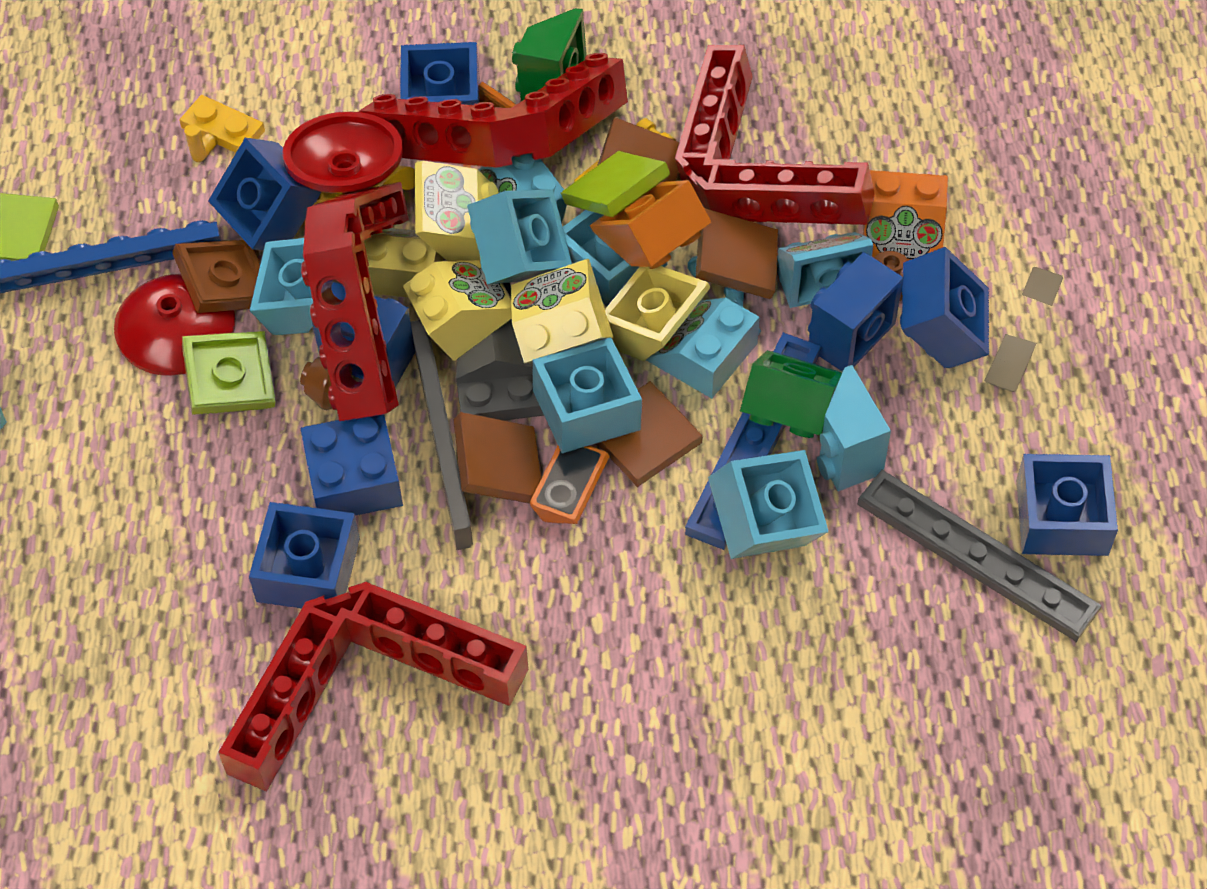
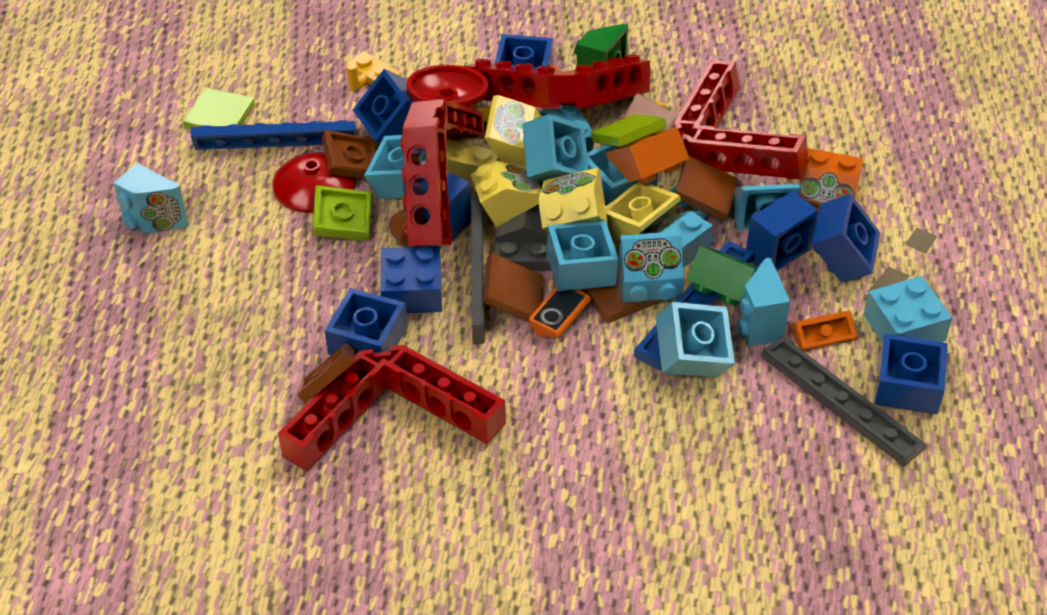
camera: 10 degrees right, 10 degrees down
(265, 642) = (326, 372): none -> dark orange tile
(687, 400) = (650, 267): none -> medium azure slope
(936, 451) = (824, 330): none -> orange slope
(1046, 410) = (908, 311): none -> medium azure brick

